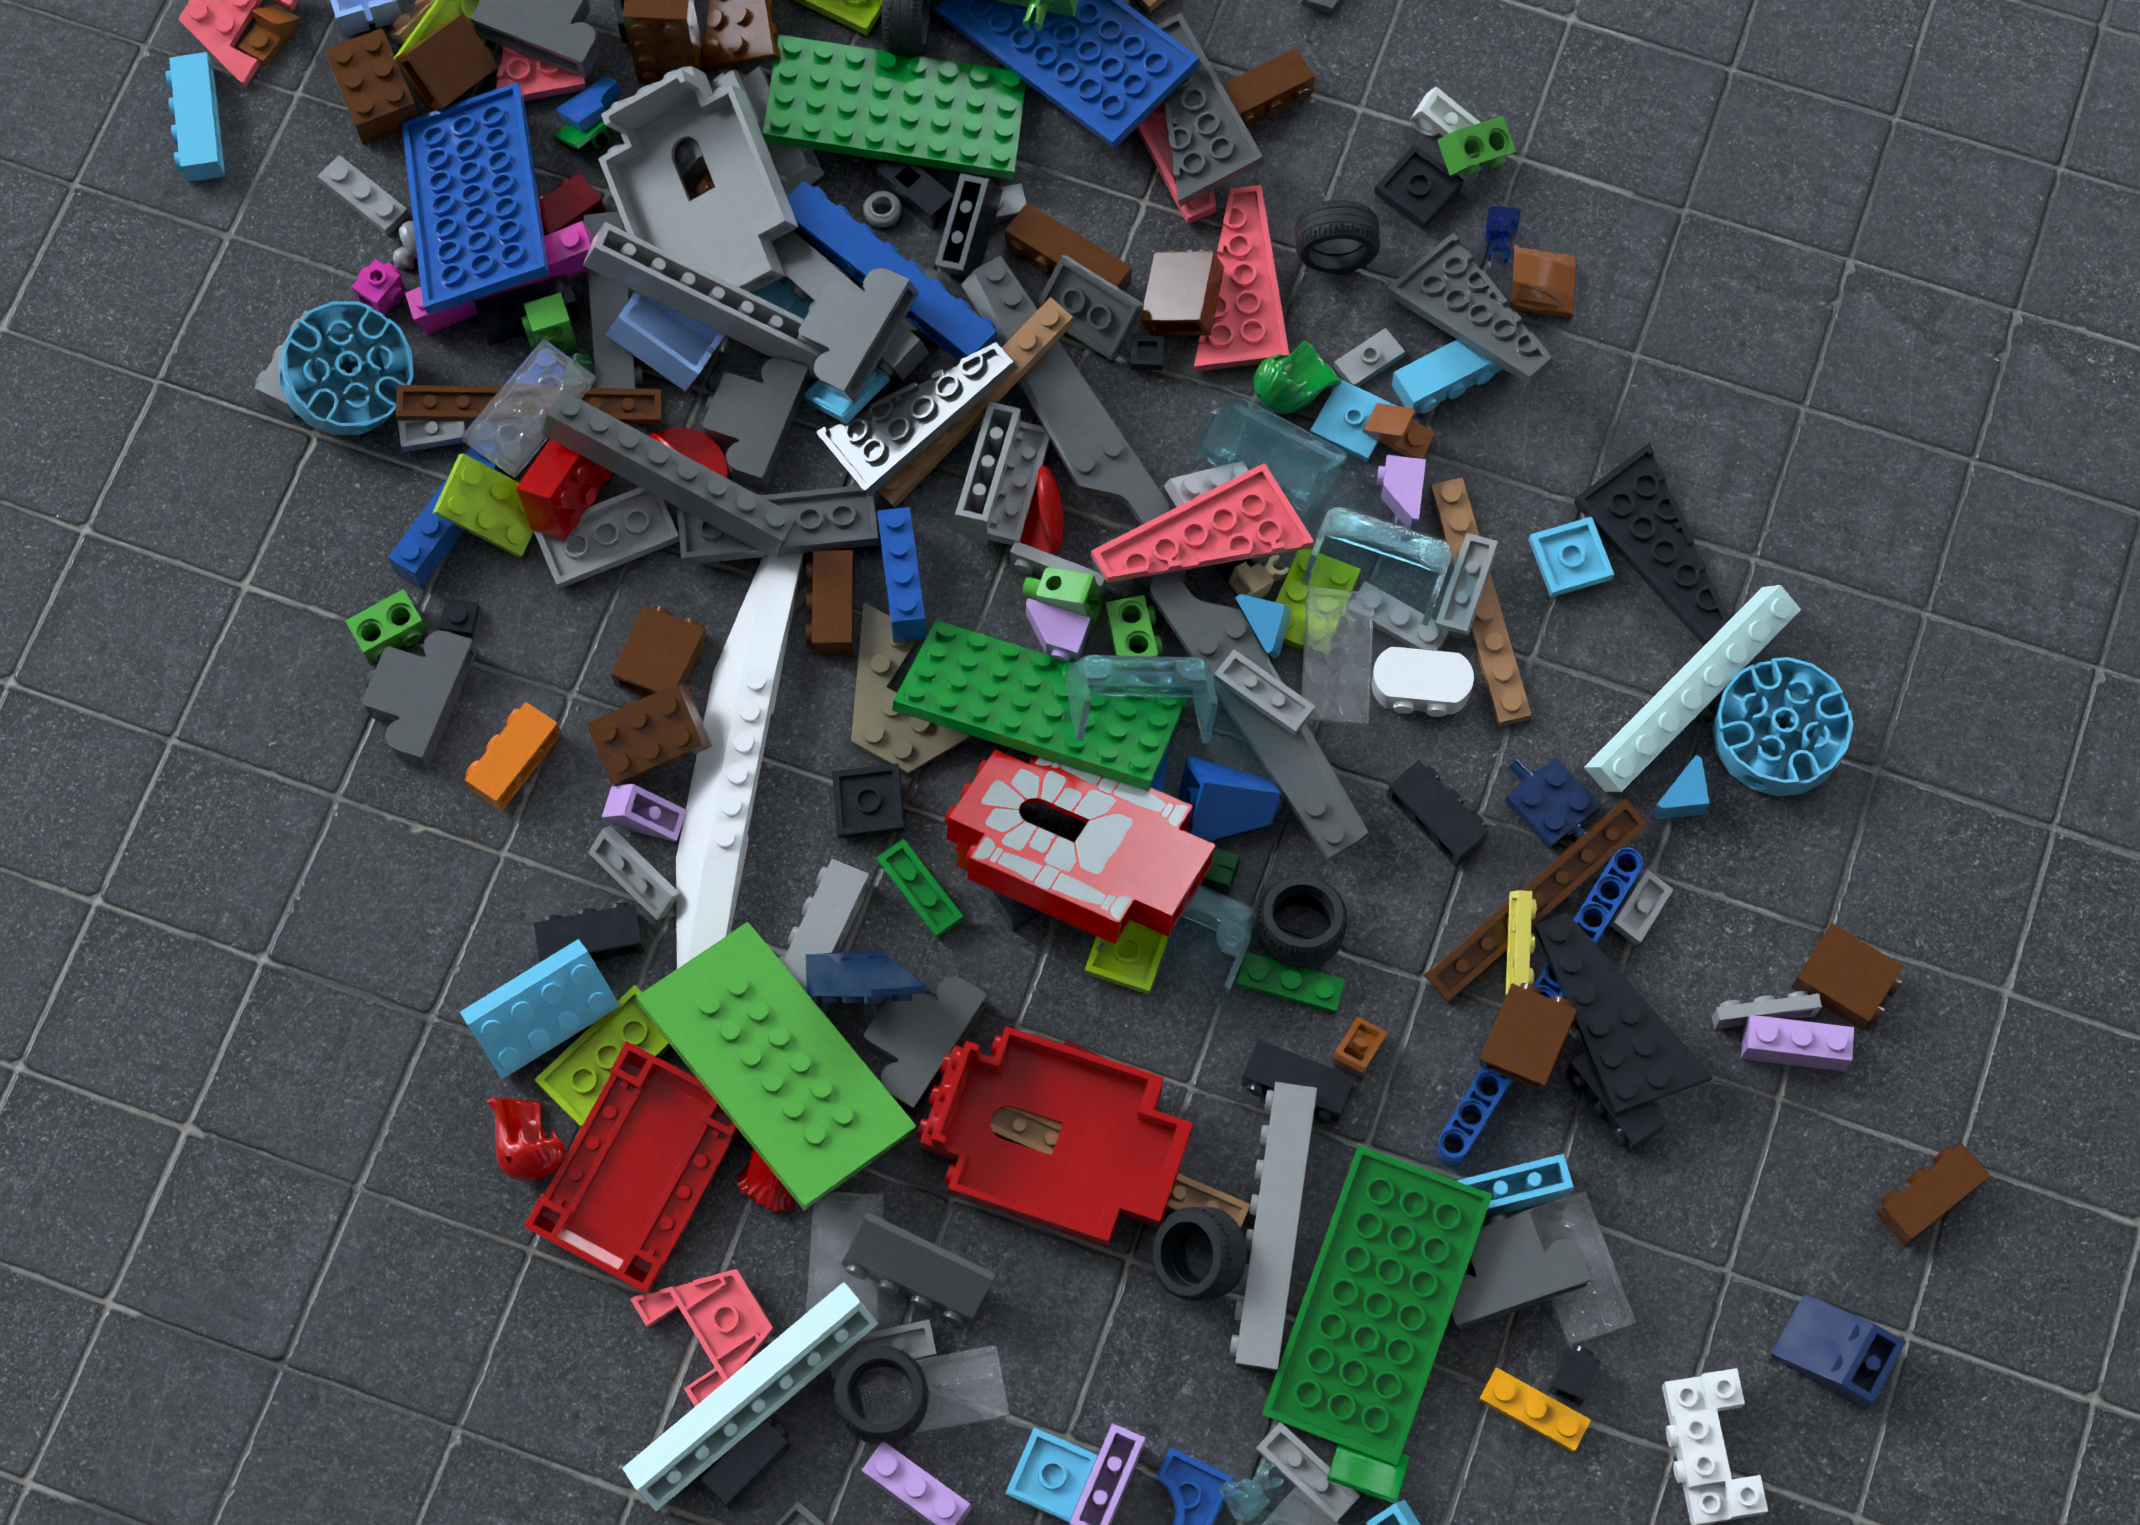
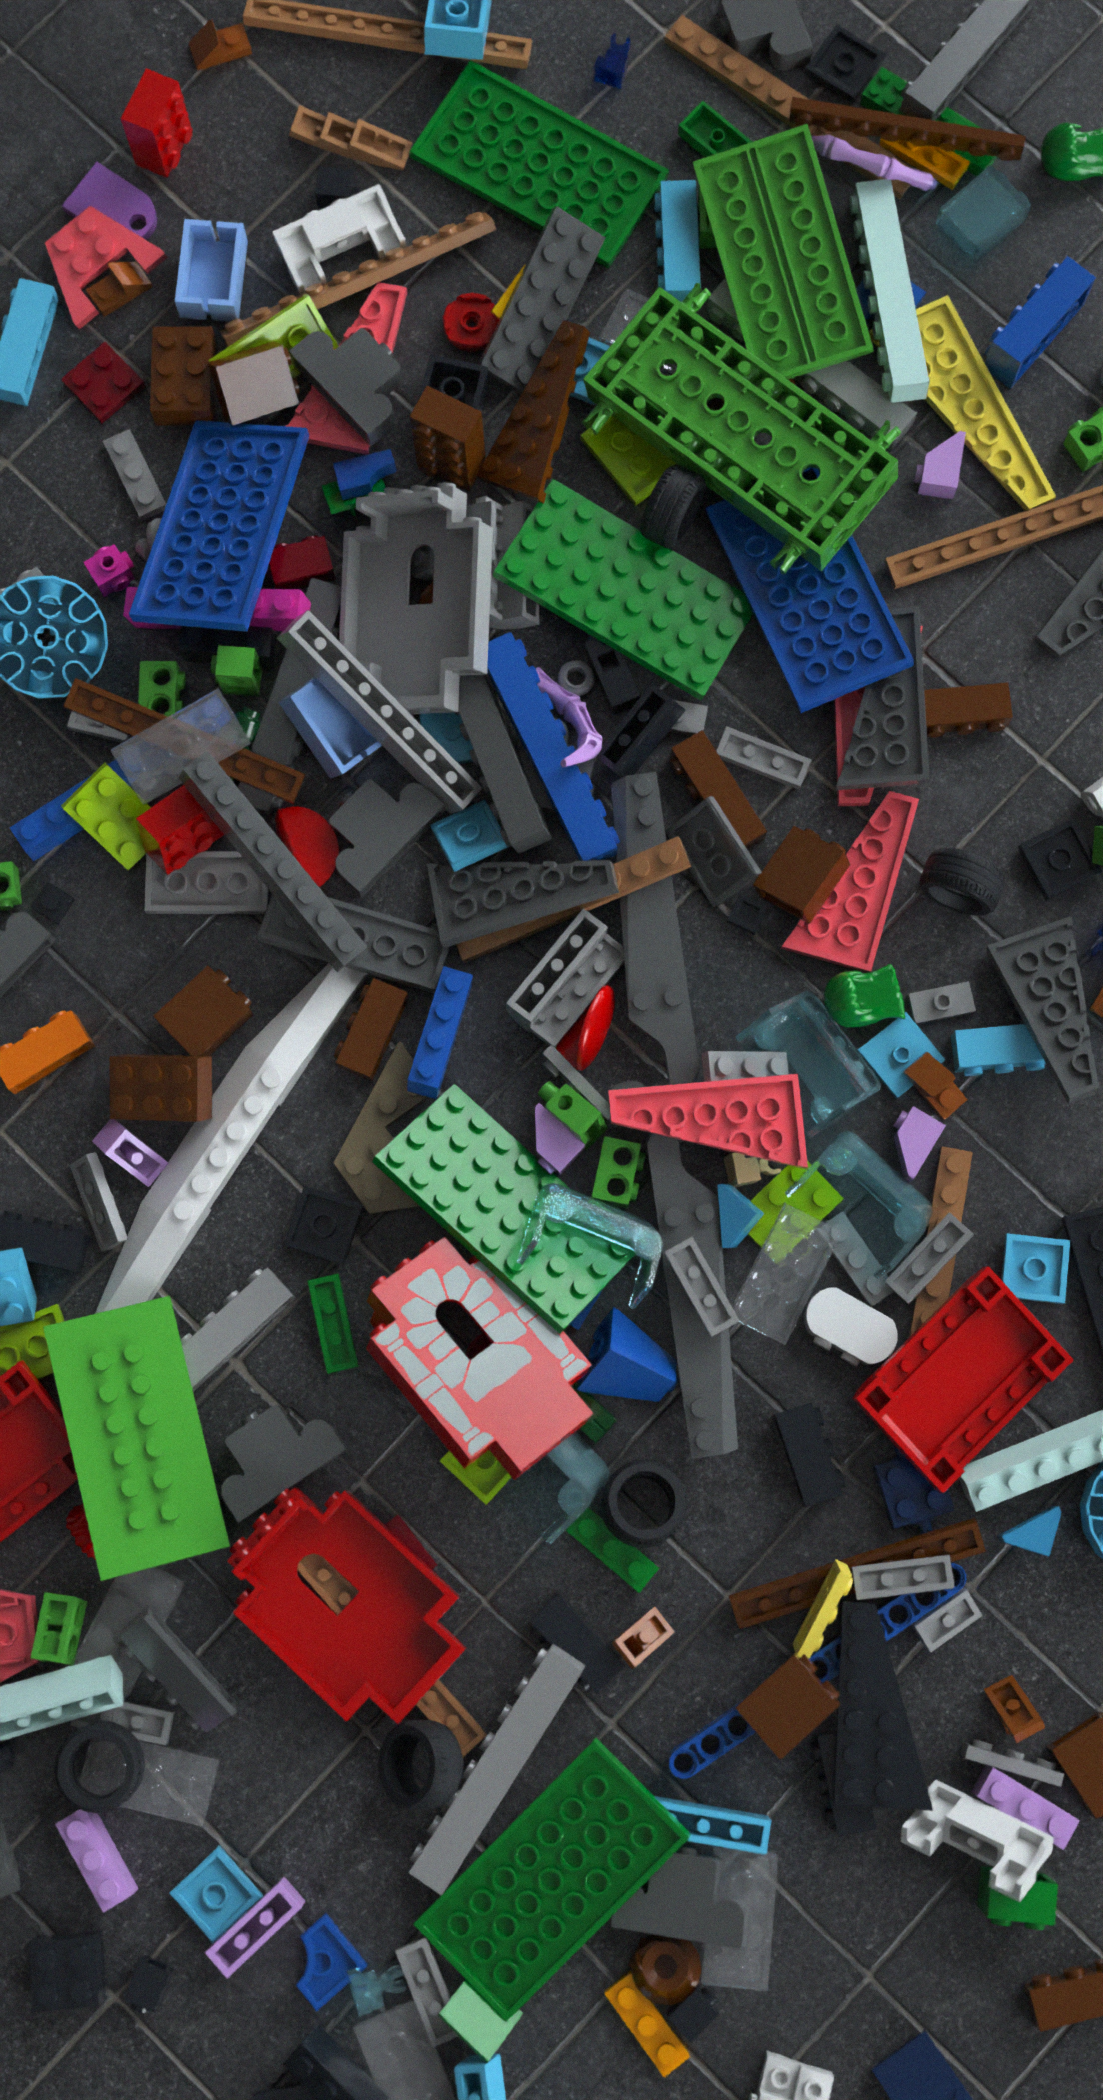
camera: 25 degrees right, 10 degrees up
(292, 124) = (103, 382): none -> dark red plate
(477, 355) = (154, 695): none -> bright green brick
(779, 1286) = (59, 1629): none -> bright green brick
(855, 328) = (492, 795): brick -> none
(859, 977) = (241, 1392): dark blue slope -> none
(923, 253) = (575, 712): none -> lavender animal
(1097, 208) = (763, 758): none -> light grey plate
(1527, 1346) = (665, 1968): none -> reddish brown piece
(1550, 677) = (961, 1377): none -> red slope
(1581, 877) = (903, 1577): none -> light grey plate
(1744, 960) = (1014, 1709): none -> dark orange slope
(1768, 1075) = (982, 1832): none -> white bracket
(1829, 1125) = (1033, 1910): none -> green brick

